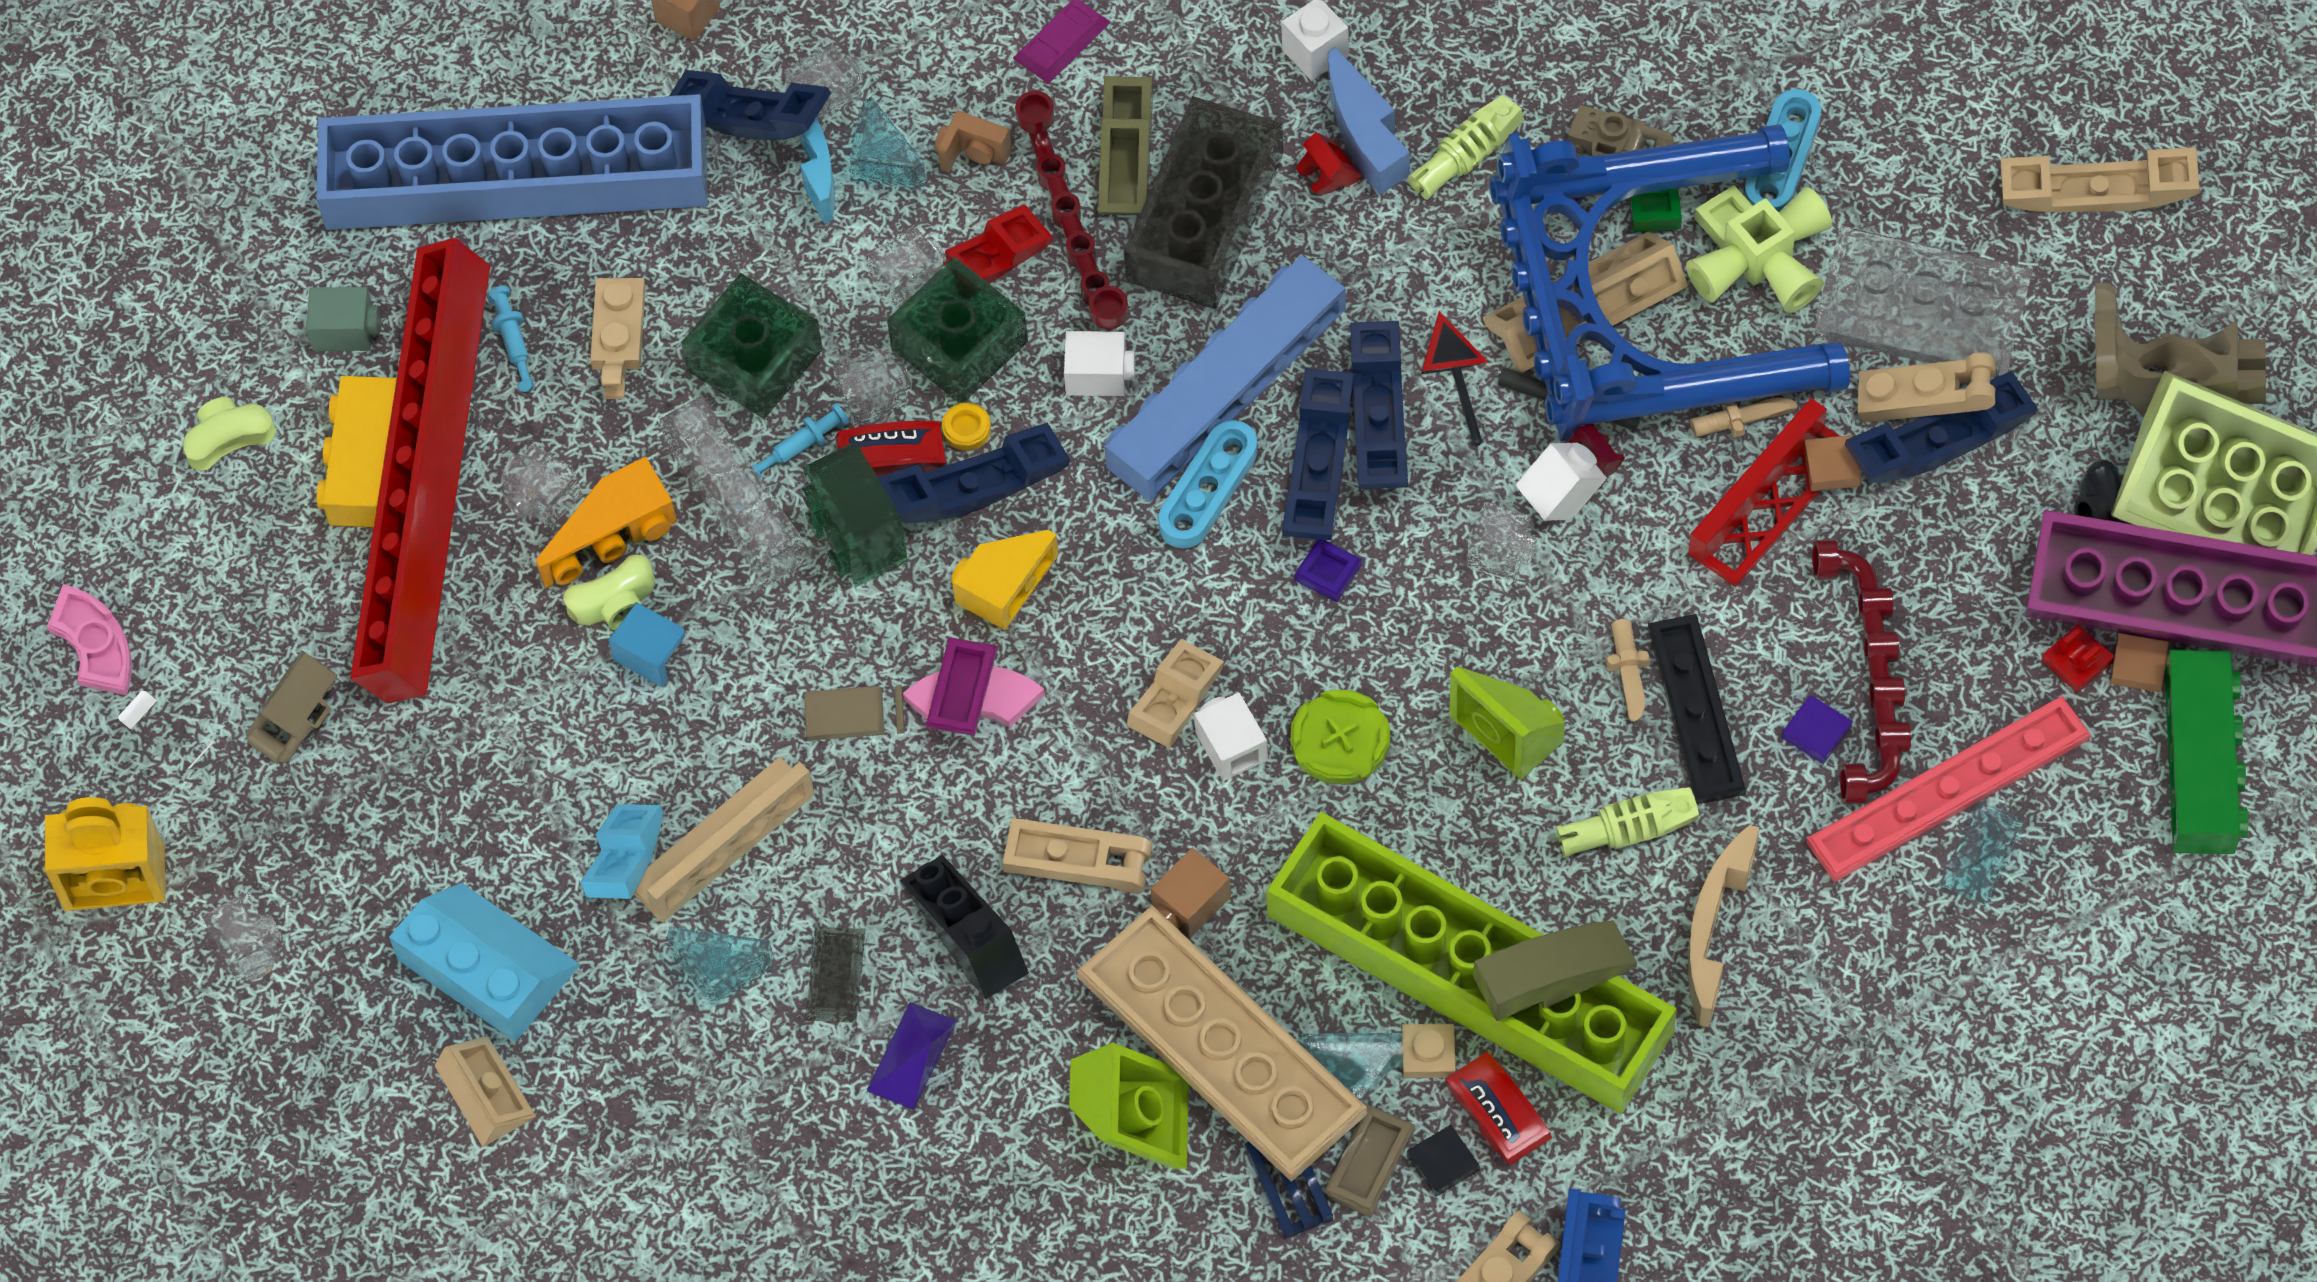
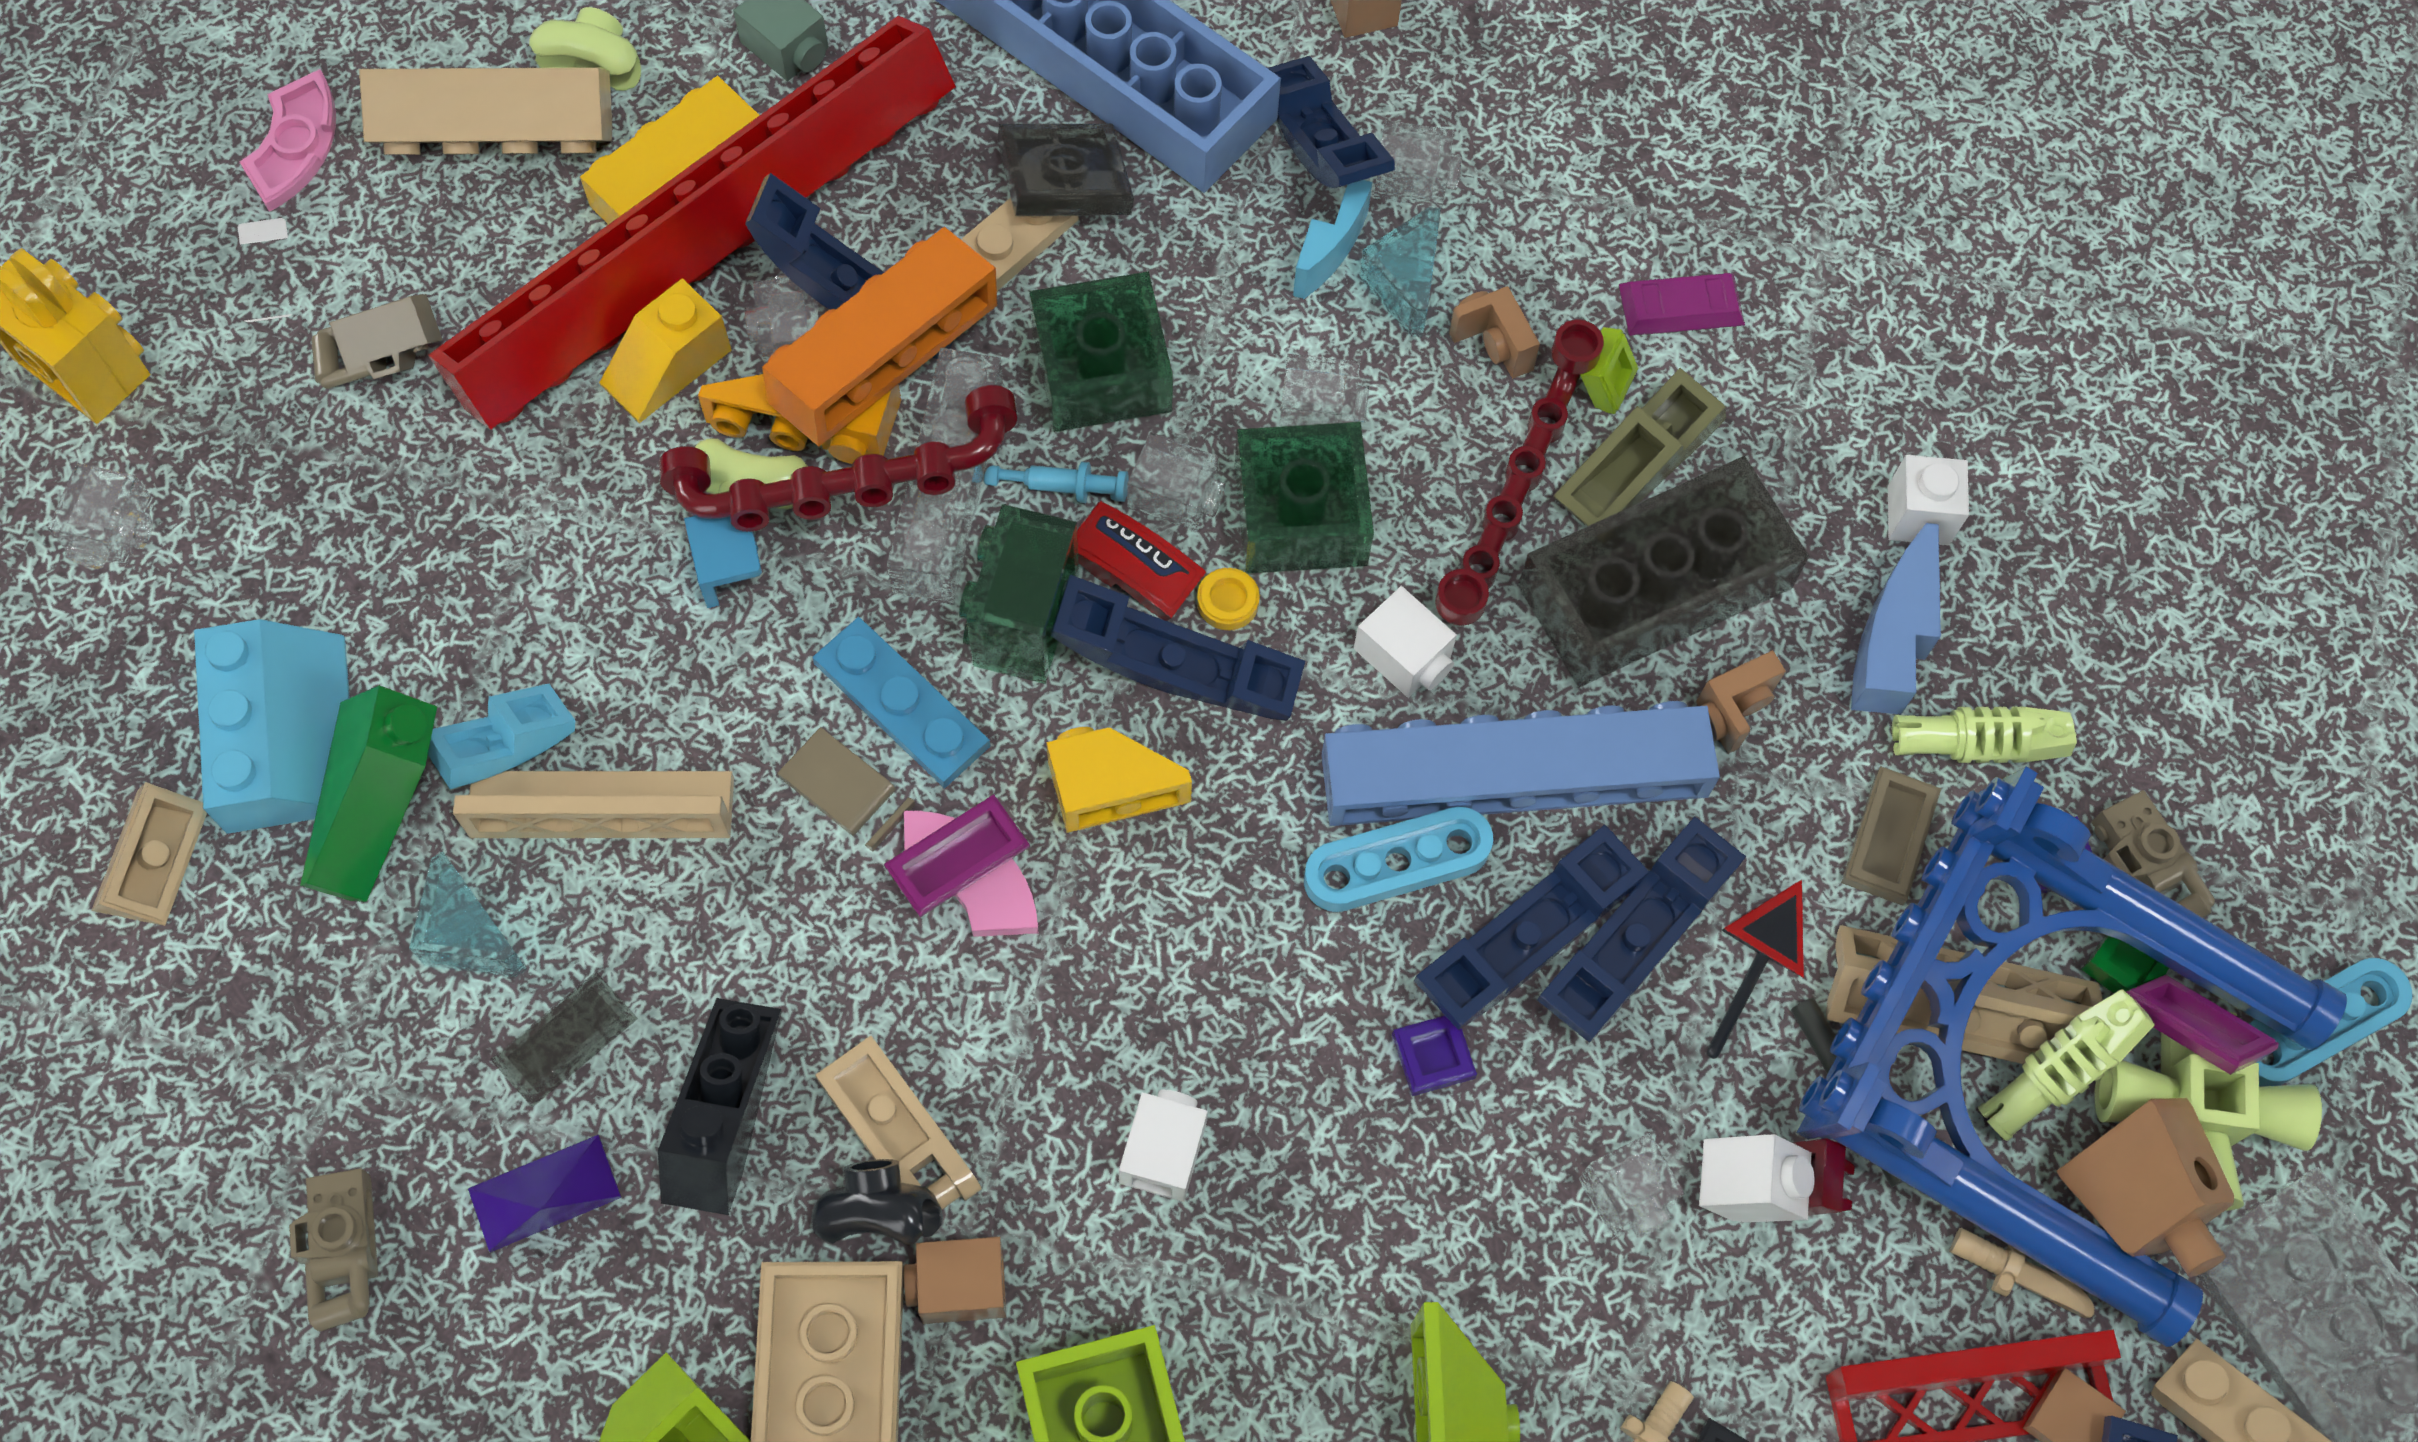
camera: 35 degrees right, 5 degrees up
(210, 514) = (486, 107): none -> tan brick
(482, 564) = (665, 350): none -> yellow slope
(508, 324) = (919, 154): medium azure piece -> none
(579, 934) = (366, 789): none -> green slope
(603, 425) = (806, 253): none -> dark blue slope
(613, 259) = (1064, 170): none -> clear smoke tile
(619, 438) = (880, 335): none -> orange brick
(674, 556) = (687, 472): none -> dark red bar
(830, 1174) = (339, 1246): none -> dark tan piece
(835, 640) = (901, 702): none -> dark azure plate
(1003, 245) = (1435, 454): red slope -> none
(1067, 118) = (1613, 373): none -> lime tile
(1105, 891) = (876, 1204): none -> black piece
(1175, 693) = (1160, 1047): tan slope -> none
(1312, 235) = (1739, 695): none -> medium nougat bracket
(1331, 160) = (1830, 638): red tile -> none
(1340, 737) = (1277, 1246): lime tile -> none
(1466, 245) = (1891, 836): none -> dark tan tile
(1669, 282) = (2069, 1062): none -> yellowish green hinge
(1717, 204) = (2202, 1025): none -> magenta tile
(1766, 305) = (2155, 1184): none -> medium nougat torso

